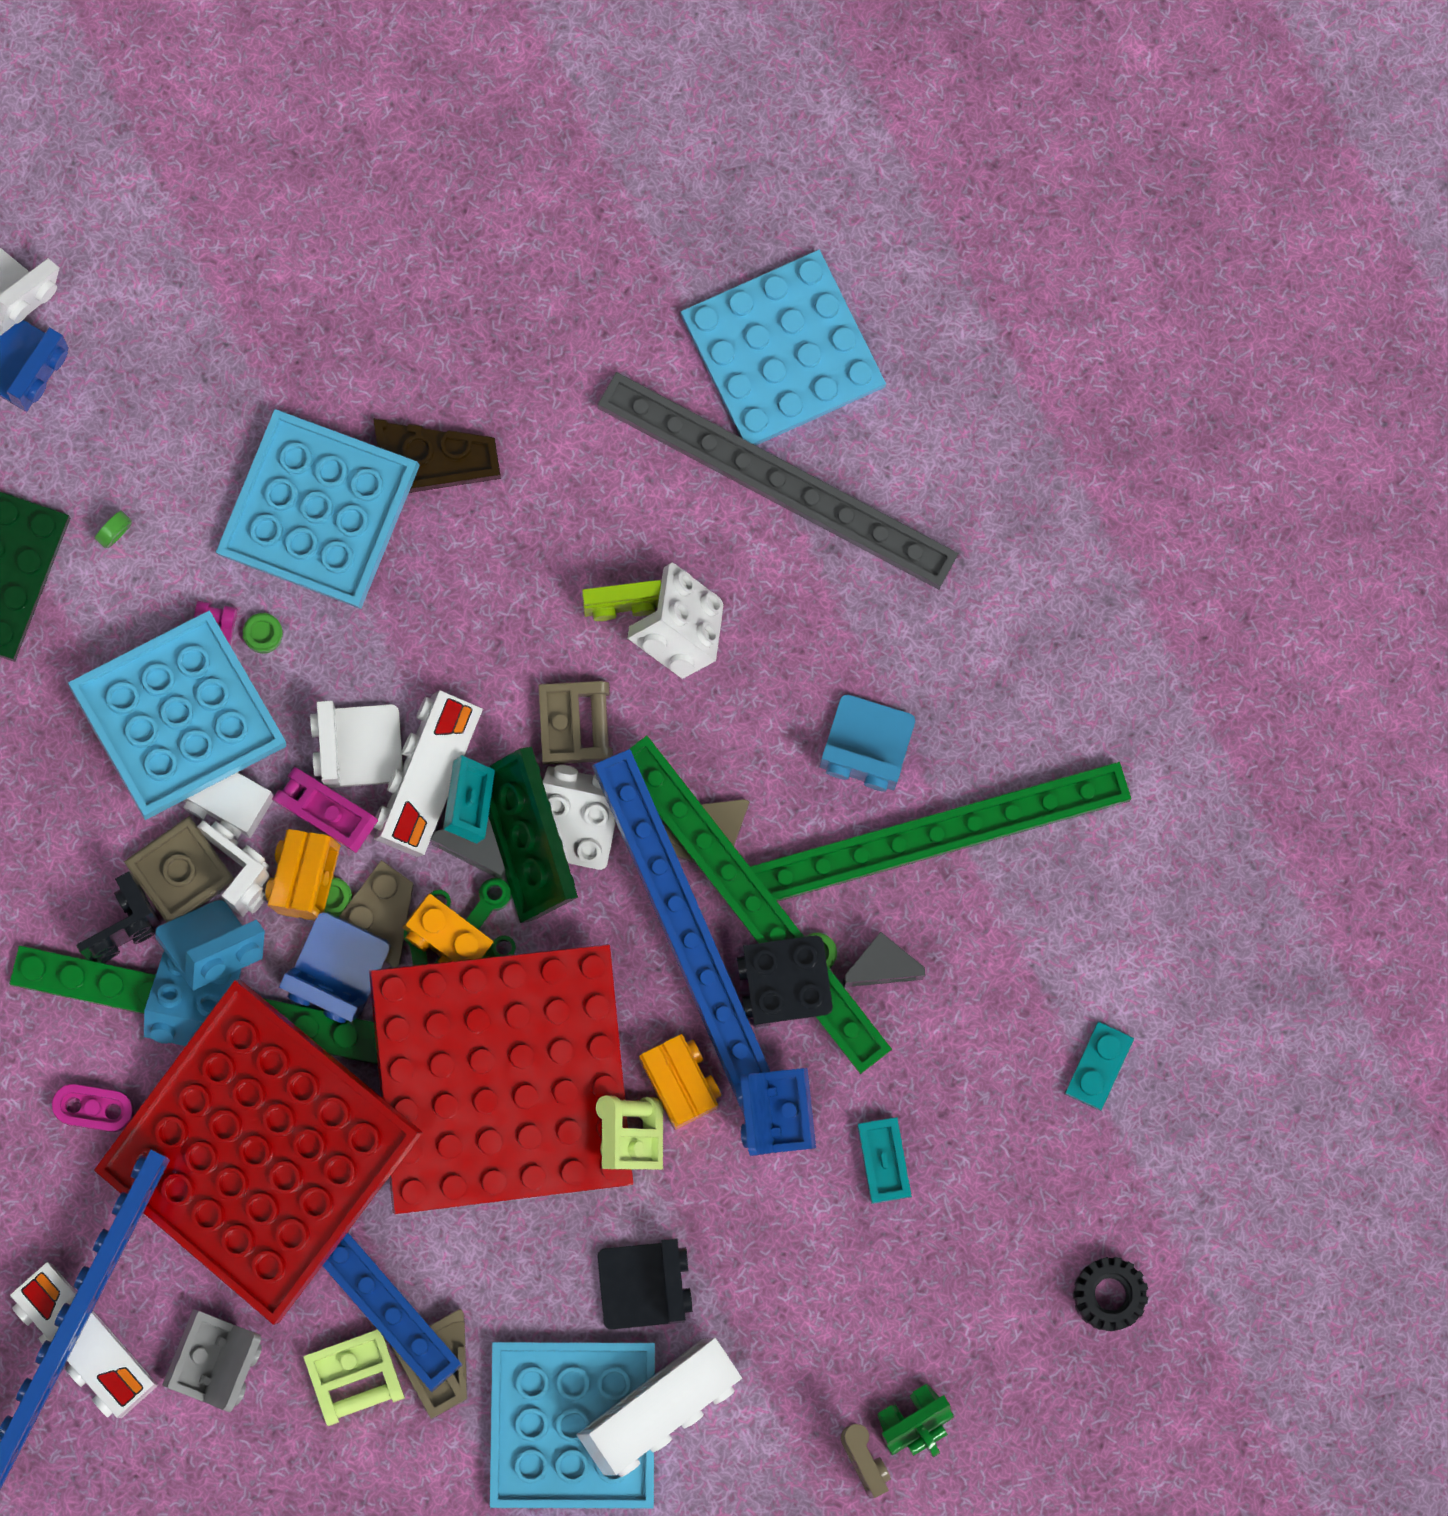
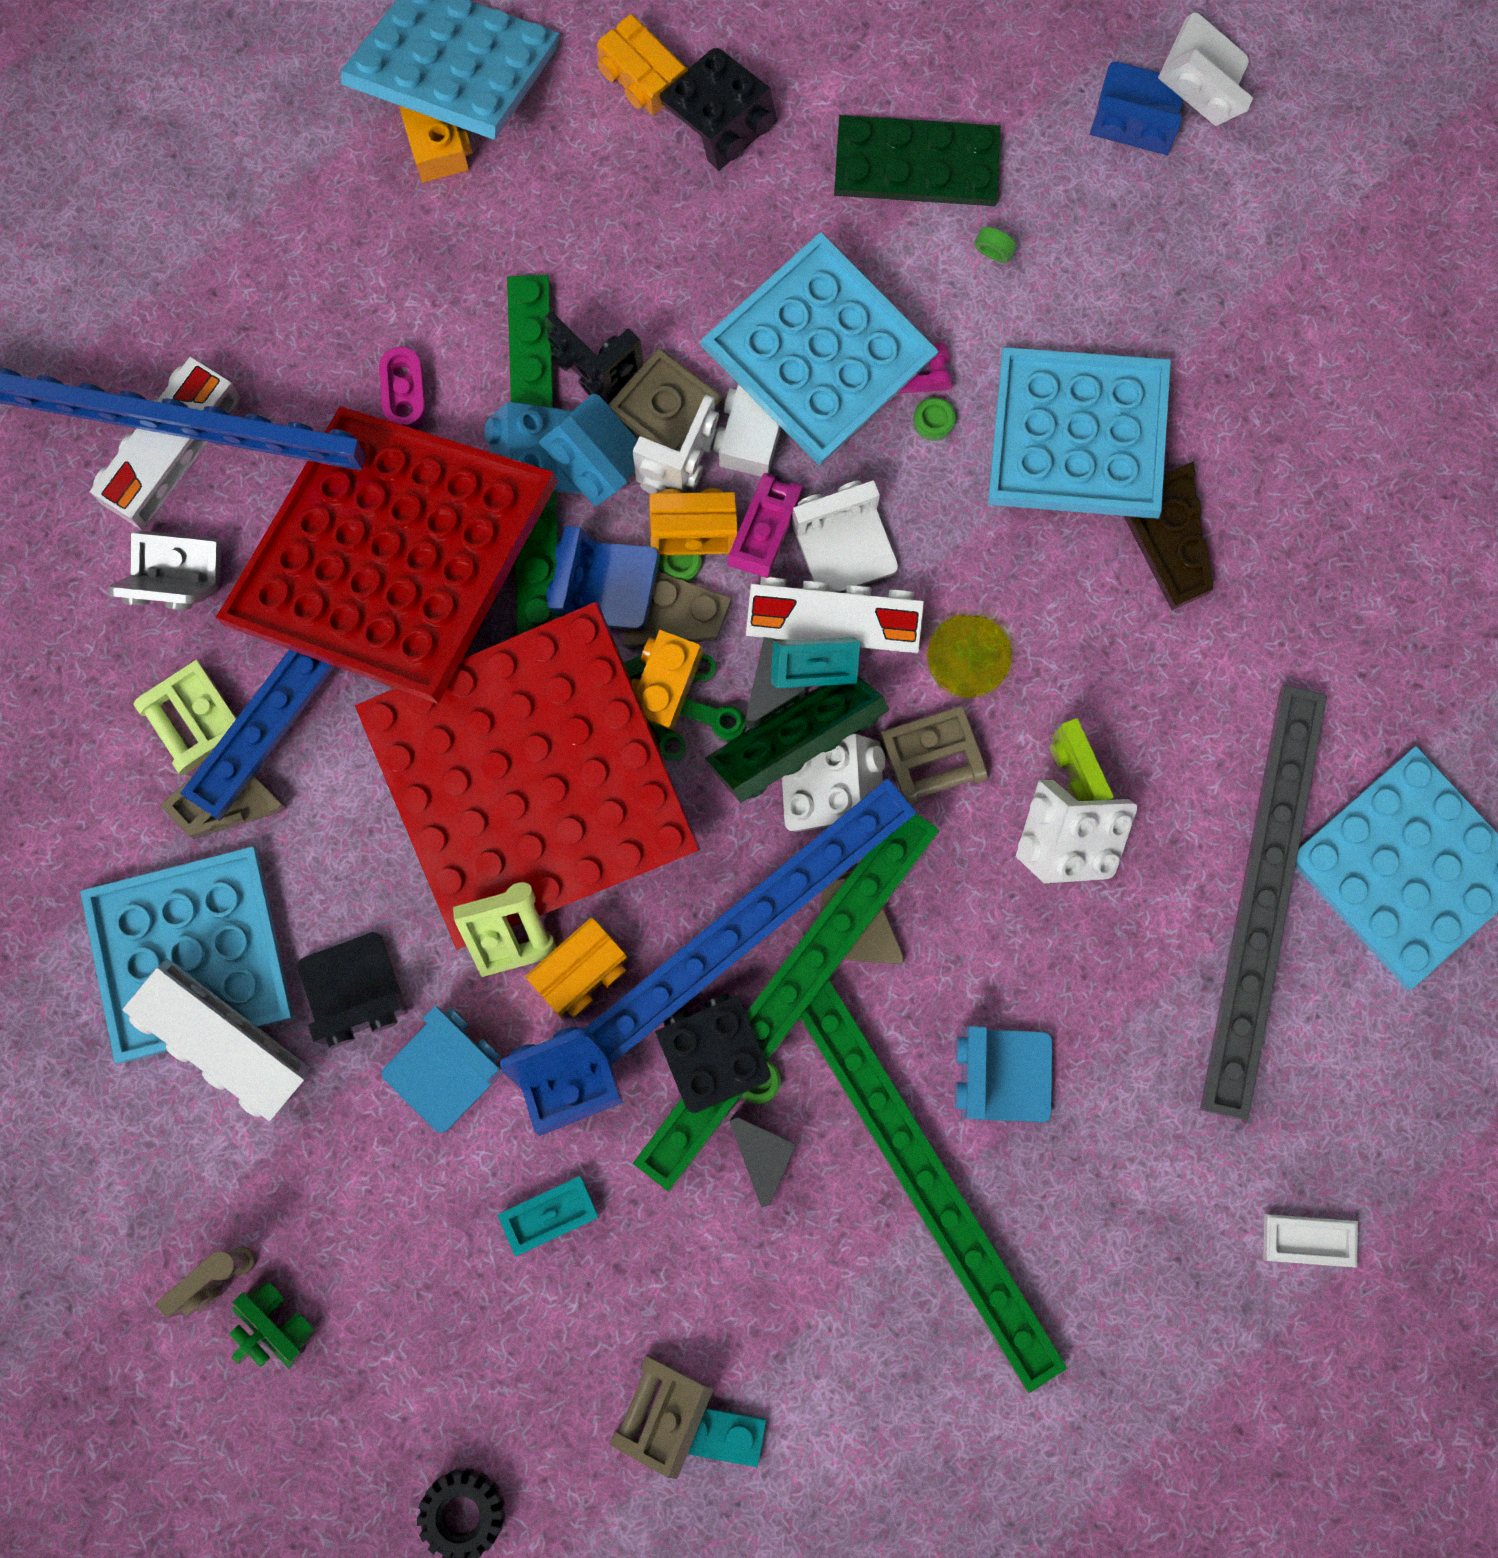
camera: 80 degrees right, 0 degrees up
(492, 666) = (968, 656): none -> clear neon green tile
(735, 1220) = (443, 1069): none -> dark azure bracket
(1068, 533) = (1310, 1240): none -> white tile
(1080, 1097) = (670, 1422): none -> dark tan plate

